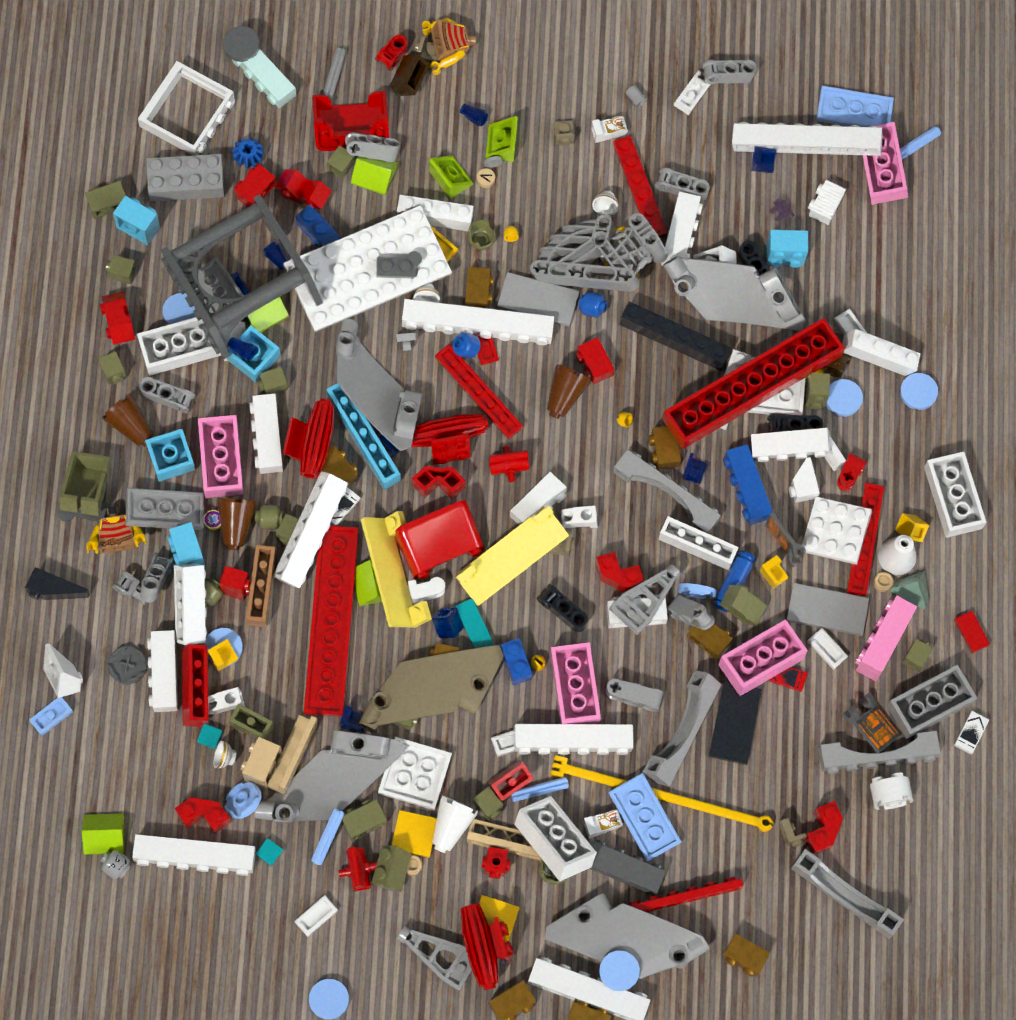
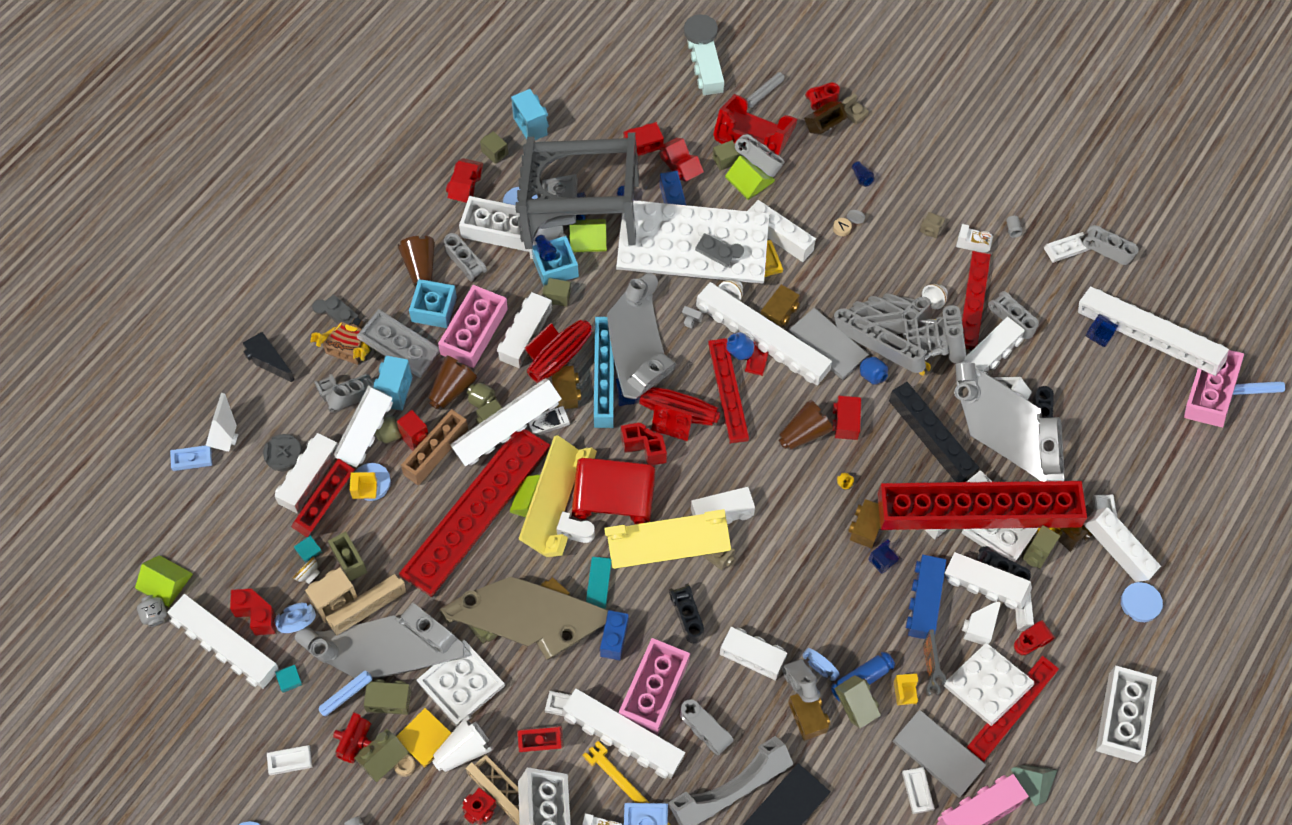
camera: 35 degrees right, 10 degrees down
(85, 483) = (347, 287): olive piece -> none
(105, 199) = (511, 86): olive brick -> none
(112, 368) = (434, 215): olive brick -> none
(180, 70) = (621, 37): white window -> none
(185, 177) = (591, 106): light grey brick -> none
(212, 520) = (431, 374): tile -> none
(225, 701) = (337, 524): white leg -> none
(241, 150) = (654, 111): blue gear -> none
(350, 720) = (433, 602): clear blue panel -> none
(447, 623) = (575, 567): clear blue panel -> none
(449, 41) = (875, 109): torso -> none
(449, 175) = (812, 208): lime slope -> none
(481, 234) = (809, 266): olive hair -> none
(488, 804) = (507, 749): olive brick -> none
(502, 139) = (877, 203): lime slope -> none
(509, 463) = (716, 461): red pin -> none
(511, 234) = (836, 280): yellow hinge -> none
(535, 665) = (631, 651): yellow hinge -> none
(540, 789) = (564, 764): light blue axle -> none
(579, 517) = (752, 541): white leg -> none
(610, 573) = (760, 618): red brick -> none
(630, 613) = (744, 649): light grey plate -> none
(633, 468) = (826, 524): light grey arch -> none
(698, 543) = (848, 622): white brick -> none
(762, 657) = (847, 761): bright pink brick -> none
(783, 209) = (1096, 378): clear purple tile -> none
(787, 248) = (1081, 410): medium azure brick -> none
(790, 678) = (862, 793): tile -> none
(826, 202) = (1142, 393): white brick -> none
(844, 397) = (1064, 569): light blue tile -> none
(853, 107) = (1208, 324): light blue tile -> none
(883, 581) = (1009, 758): tan tile -> none
(897, 555) = (1038, 740): white cone -> none
(912, 526) = (1066, 722): yellow panel -> none

